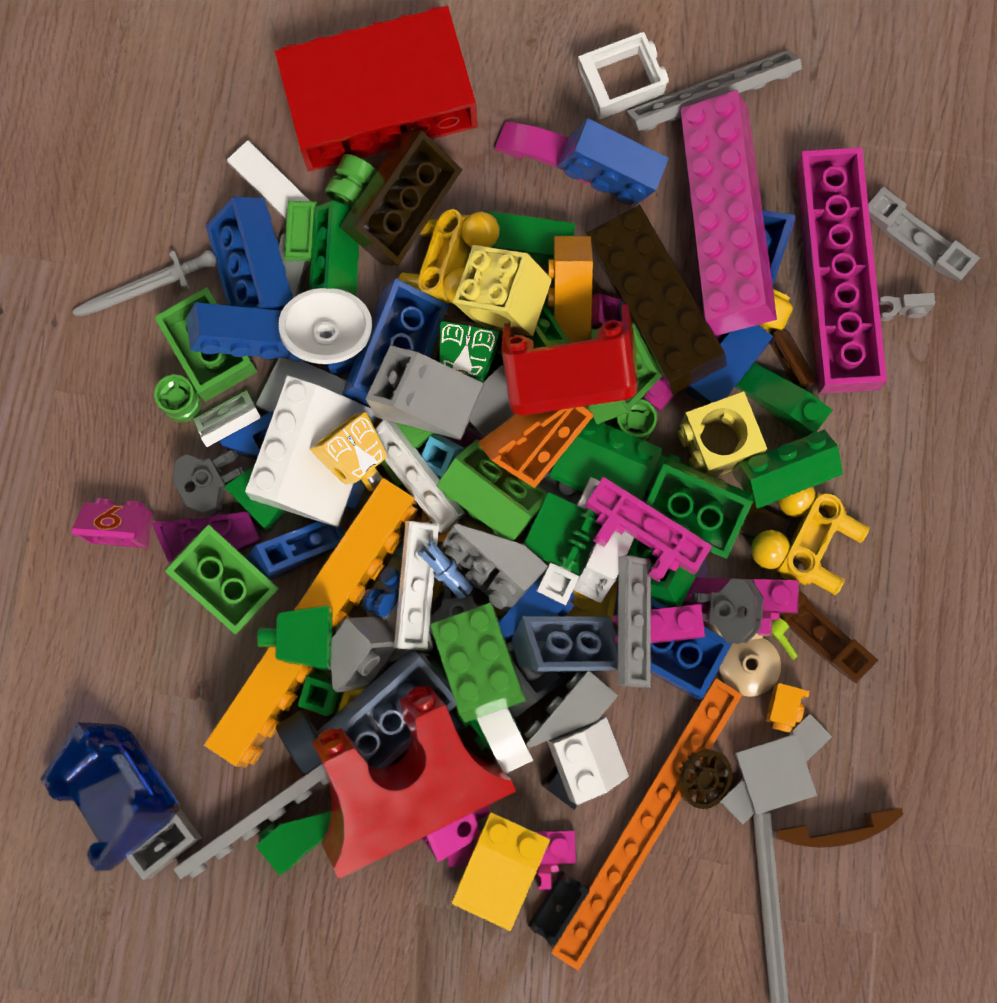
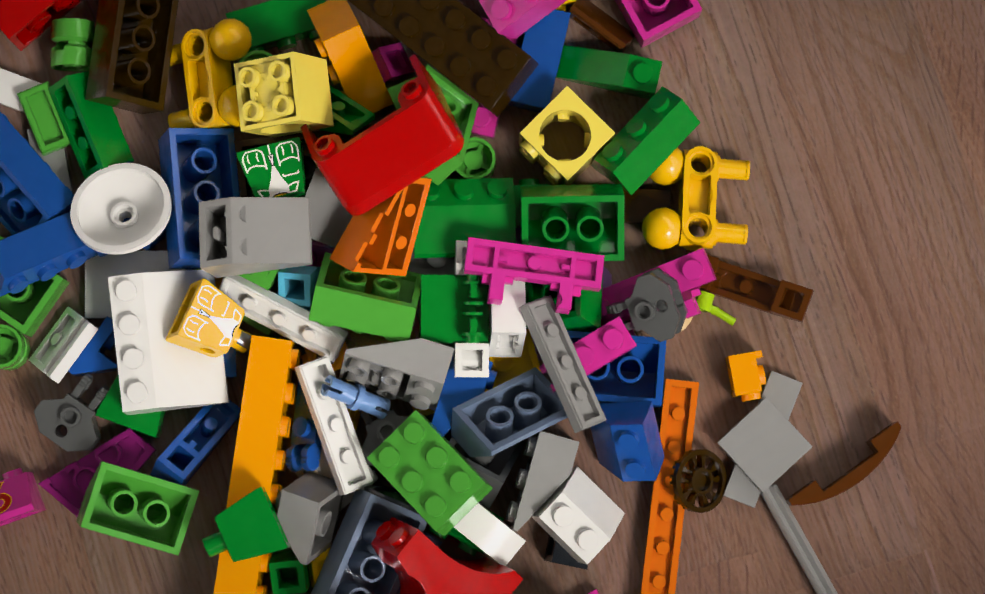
camera: 30 degrees left, 5 degrees up
(660, 716) = (629, 441): none -> blue slope
(746, 681) = (696, 367): tan dish -> none

